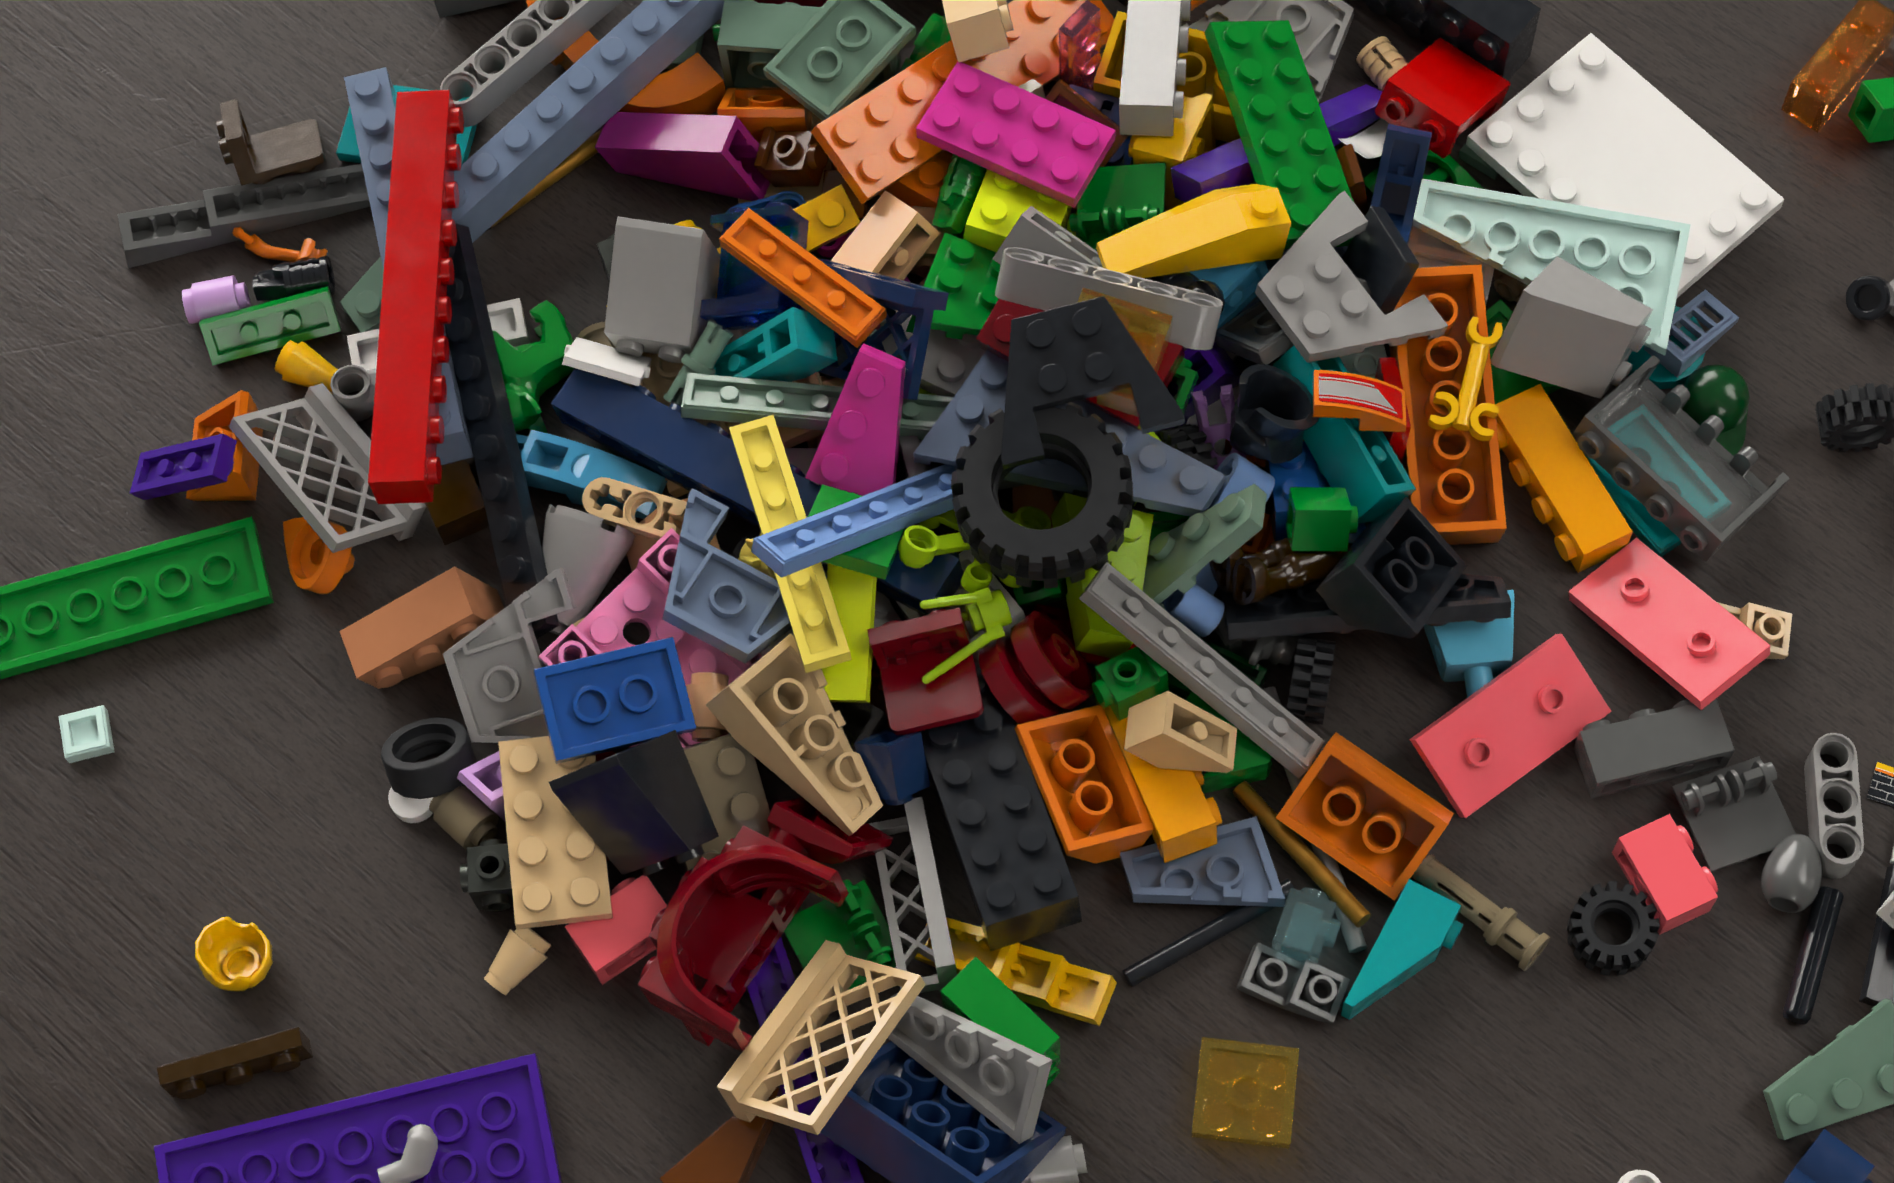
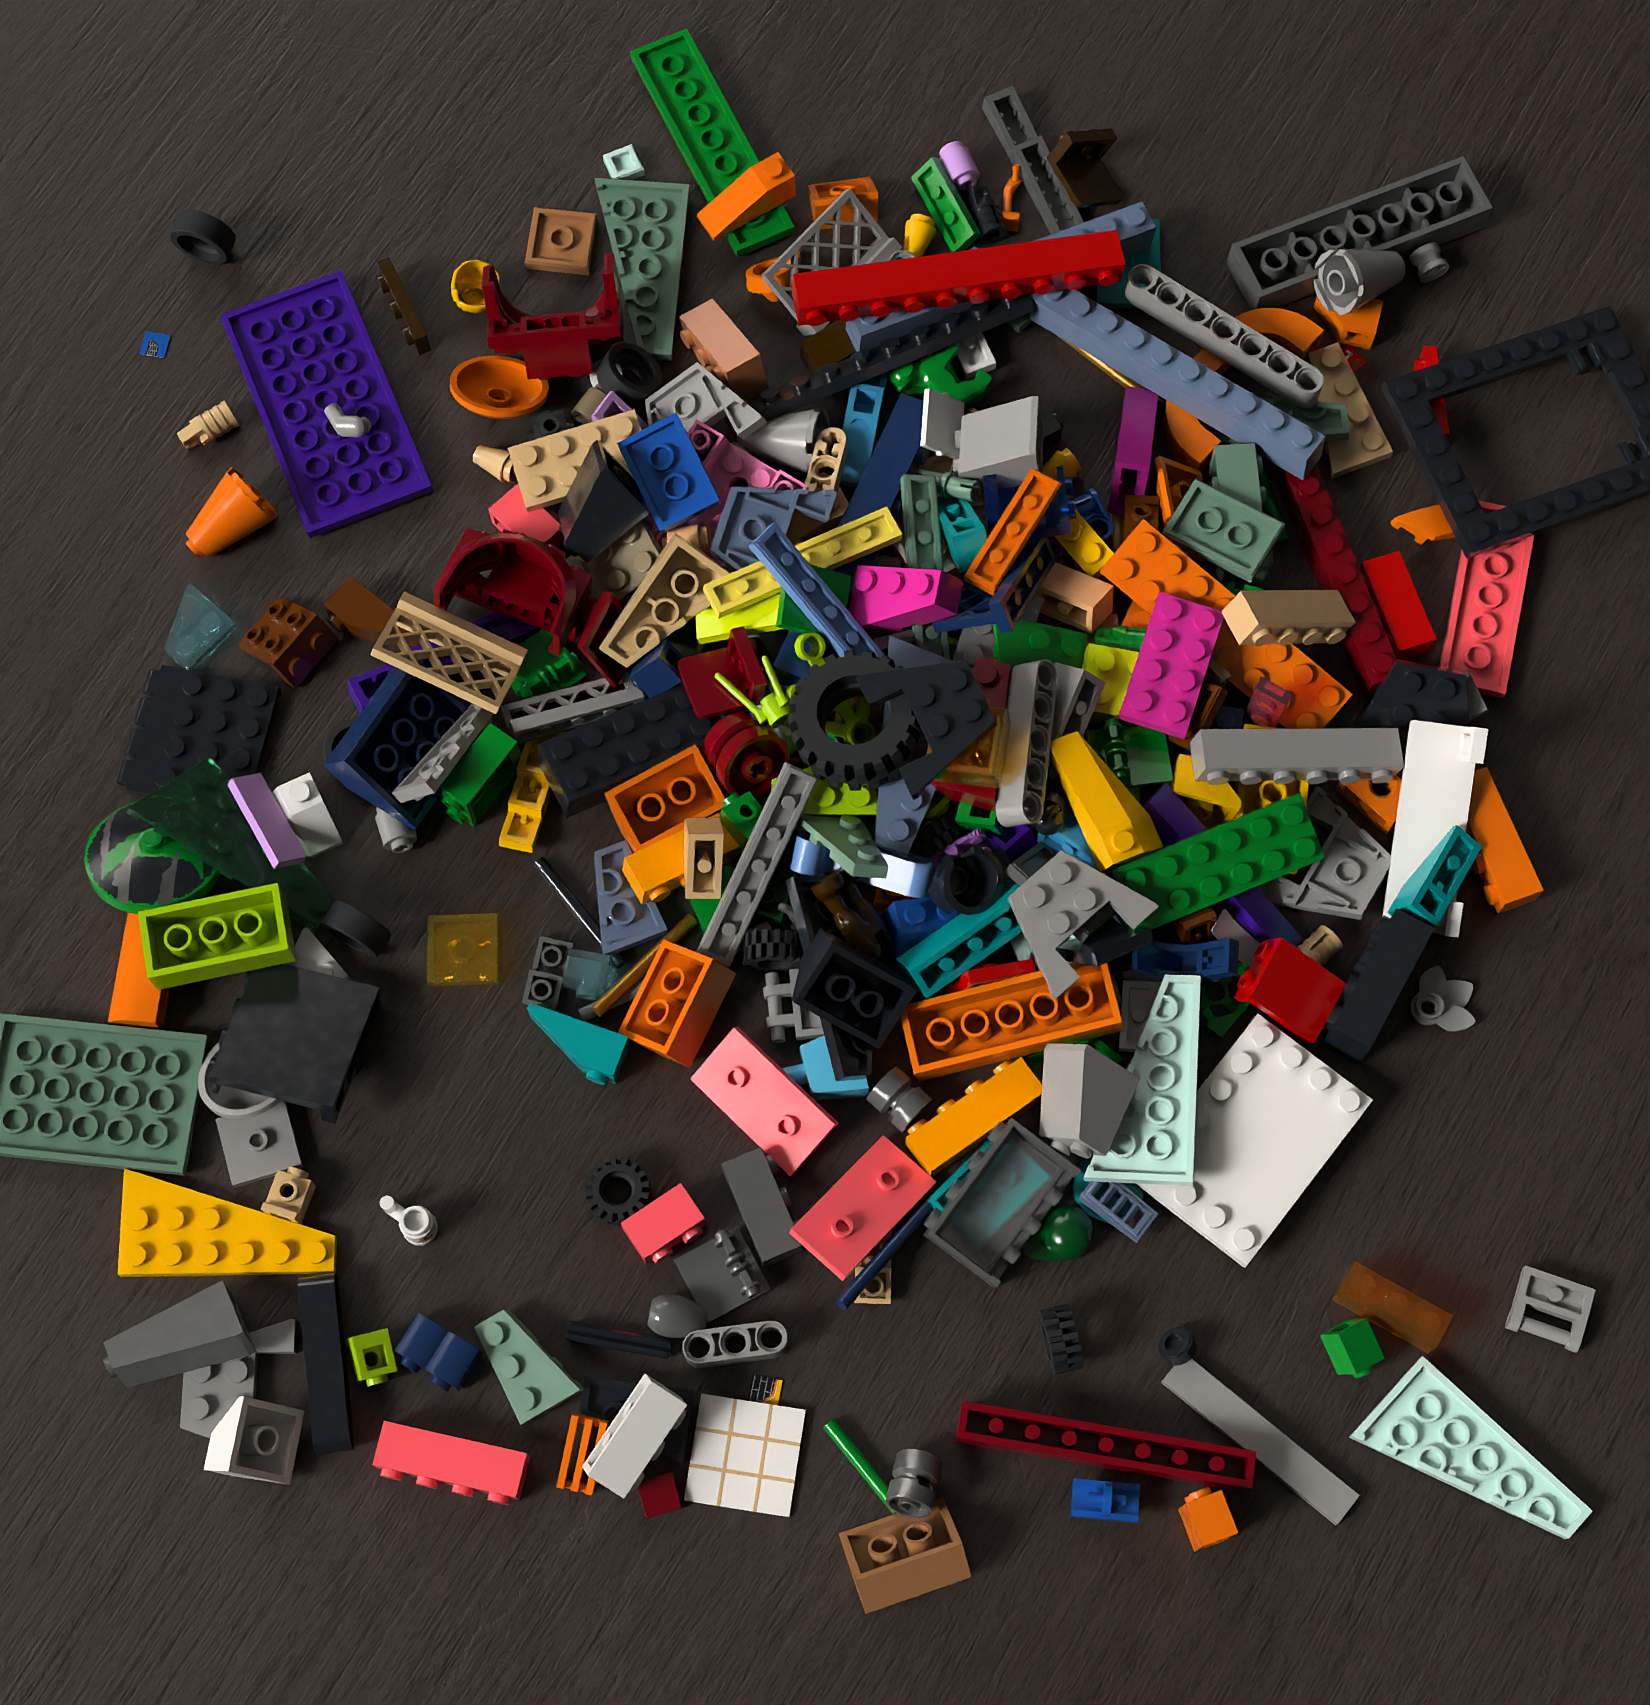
camera: 75 degrees right, 5 degrees up
(183, 467) = (818, 172): dark purple plate -> none
(184, 834) = (561, 241): none -> medium nougat tile
(197, 562) = (749, 196): none -> orange slope
(223, 713) = (647, 241): none -> sand green wing
(356, 833) = (554, 342): none -> dark red piece
(405, 935) = (497, 387): none -> orange dish
(1320, 519) = (887, 930): green brick -> none
(1350, 395) = (981, 940): slope -> none
(1380, 655) = (806, 1023): none -> light grey plate
(1463, 413) = (996, 1026): yellow bar -> none
(1498, 924) = (610, 1109): dark tan pin -> none
(1533, 556) = (900, 1099): none -> dark grey wheel
(1741, 610) = (884, 1255): none -> dark blue bar

